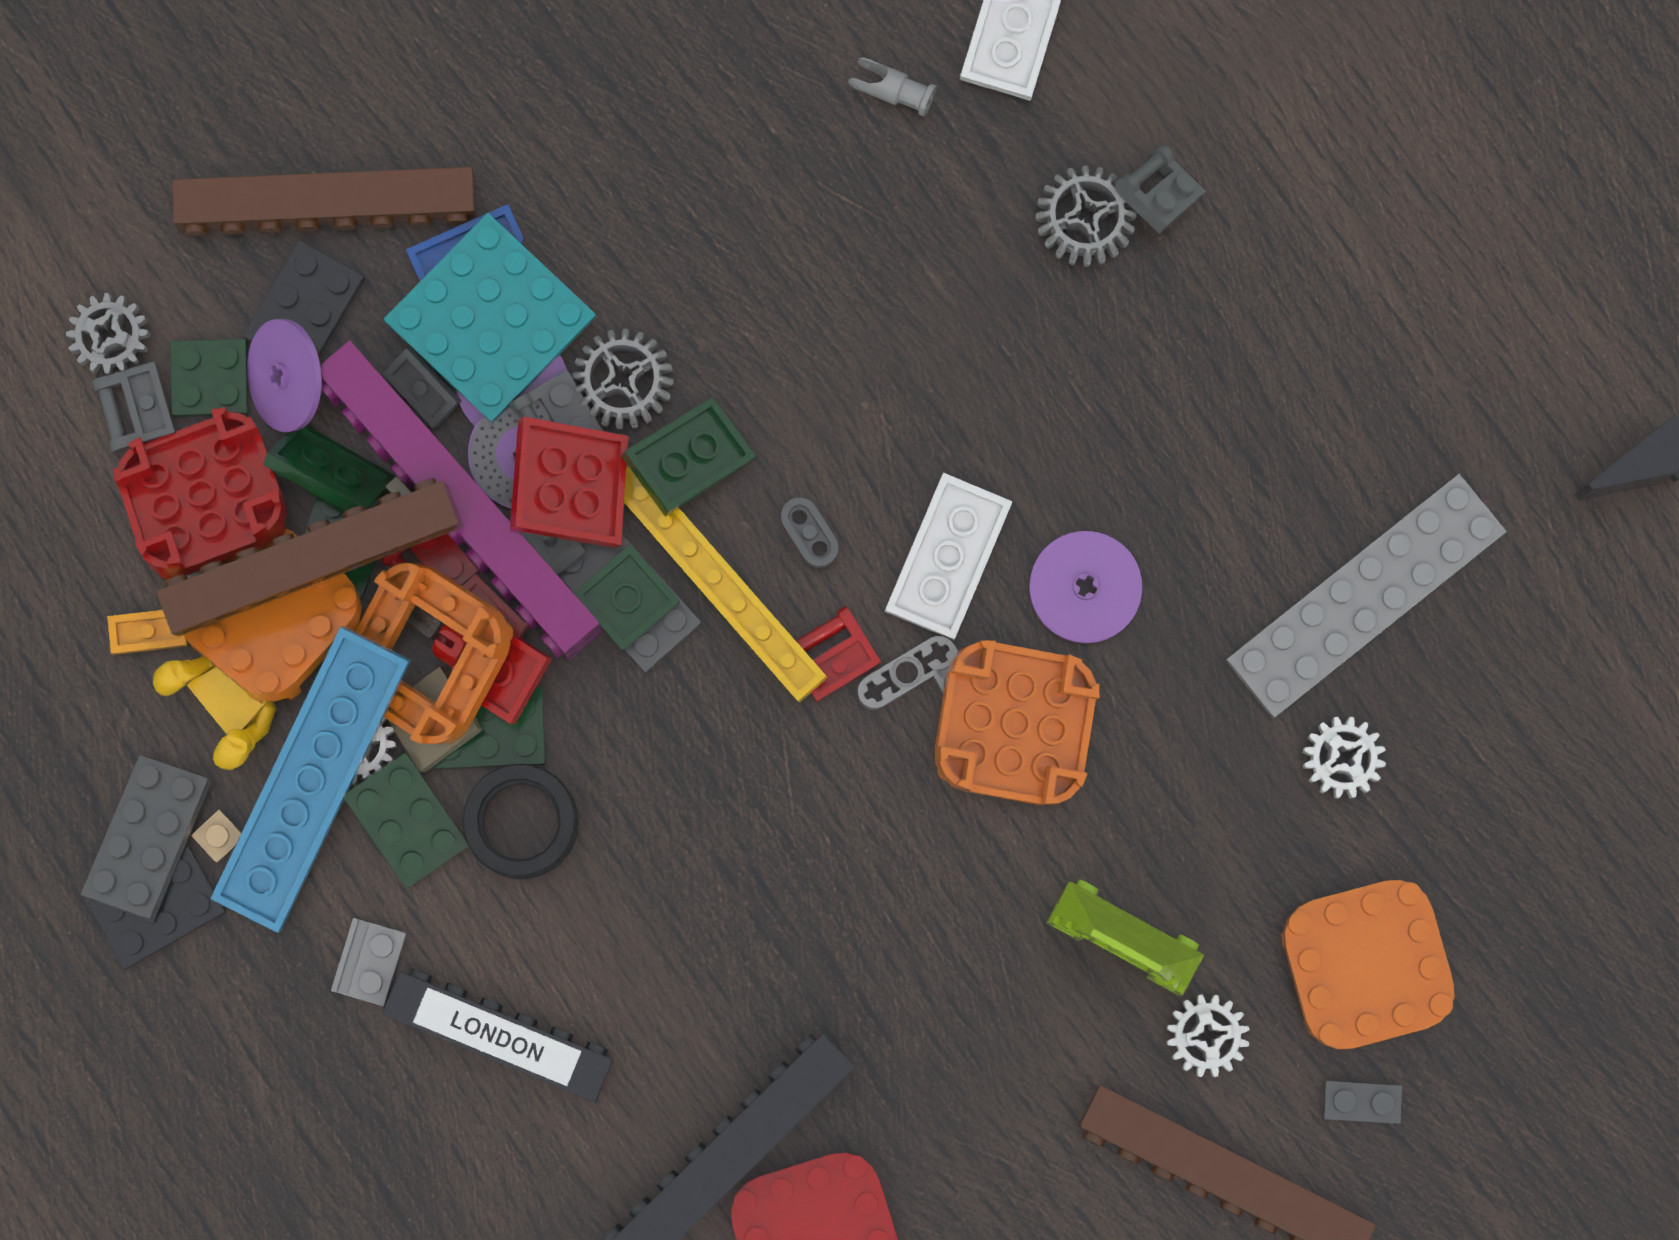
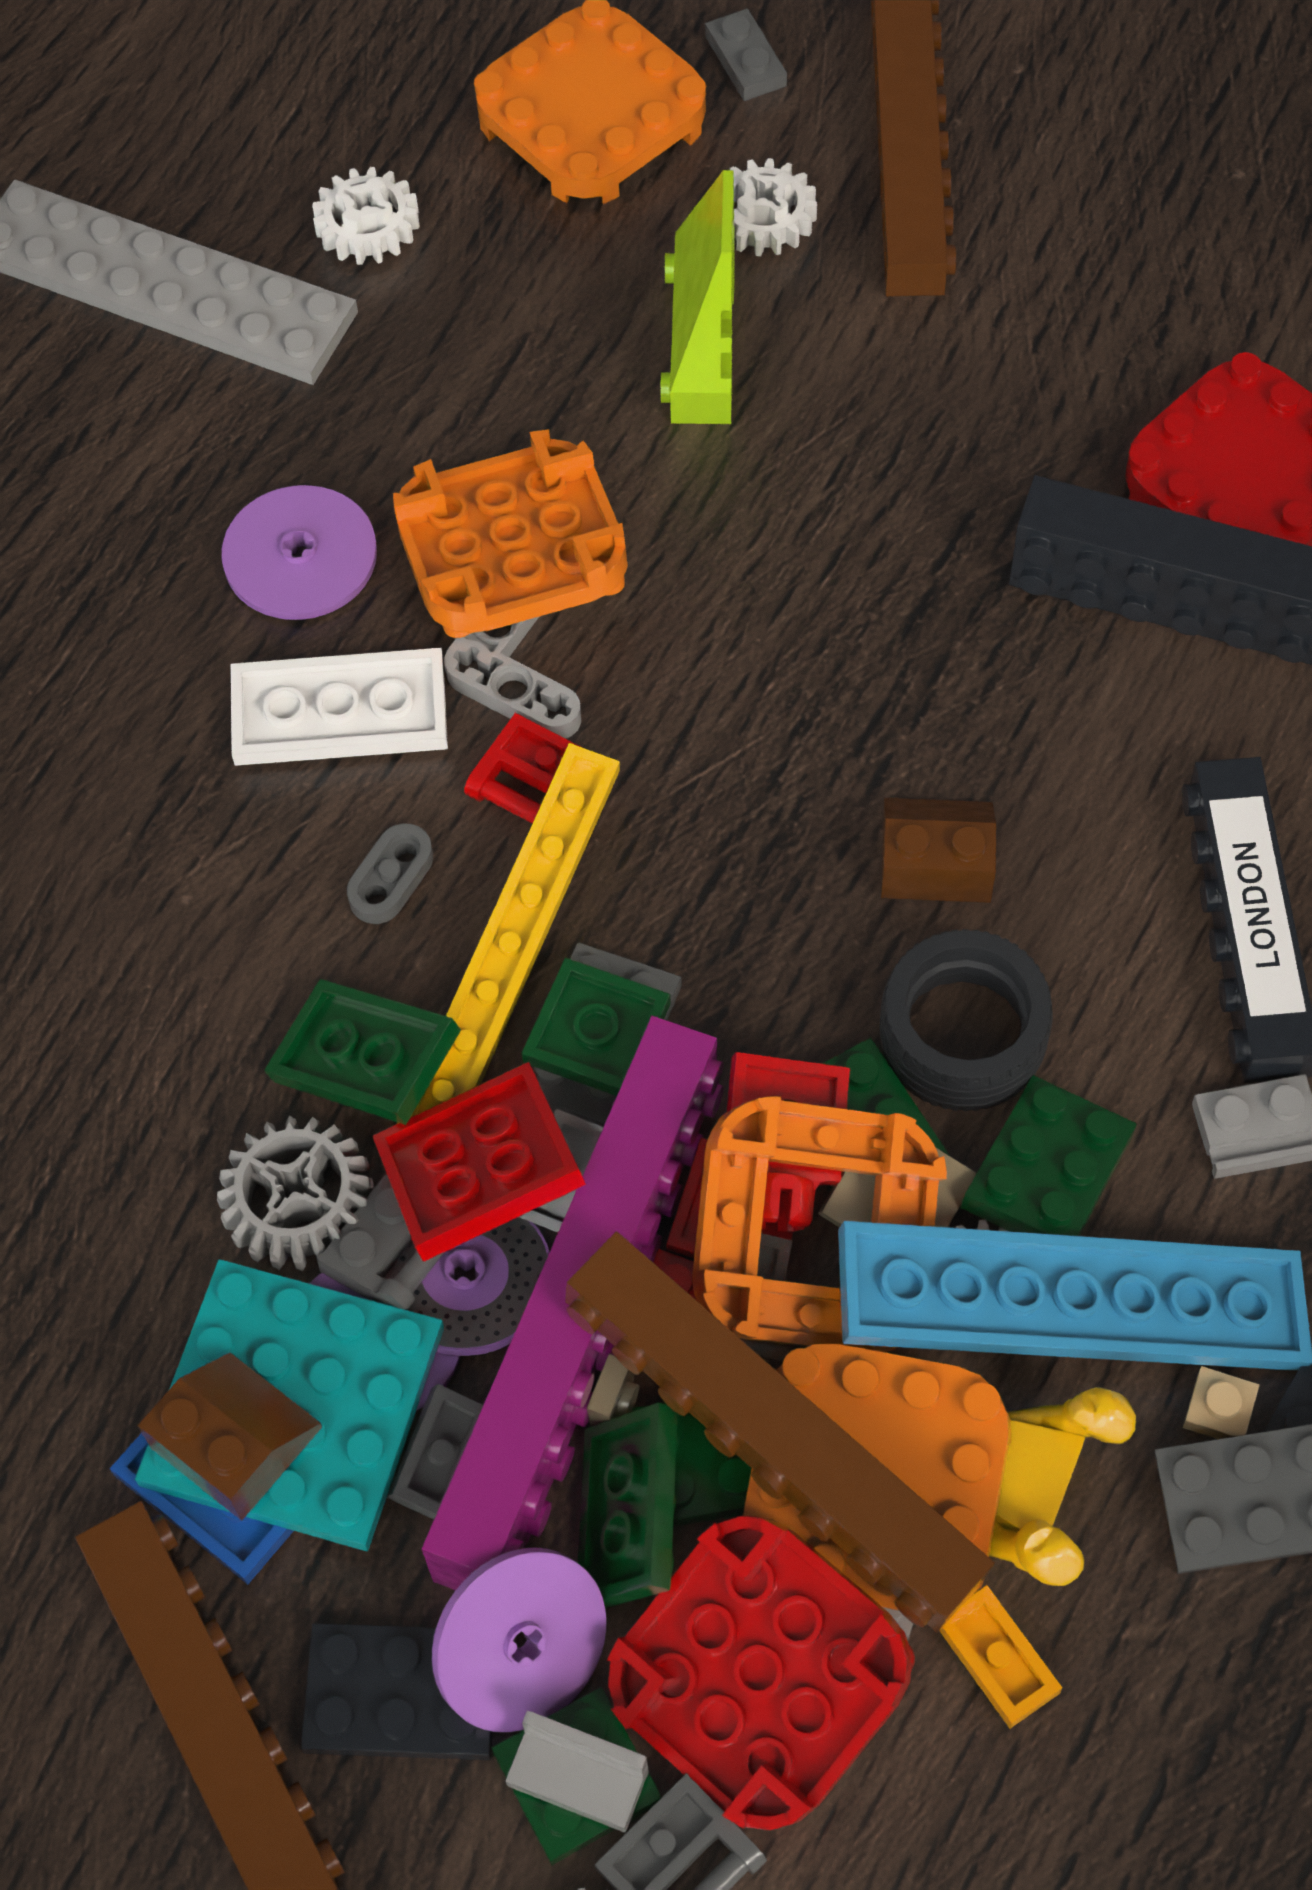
camera: 110 degrees left, 20 degrees down
(201, 372) = (578, 1771): none -> light grey panel
(477, 271) = (228, 1432): none -> reddish brown slope
(652, 876) = (938, 850): none -> reddish brown slope

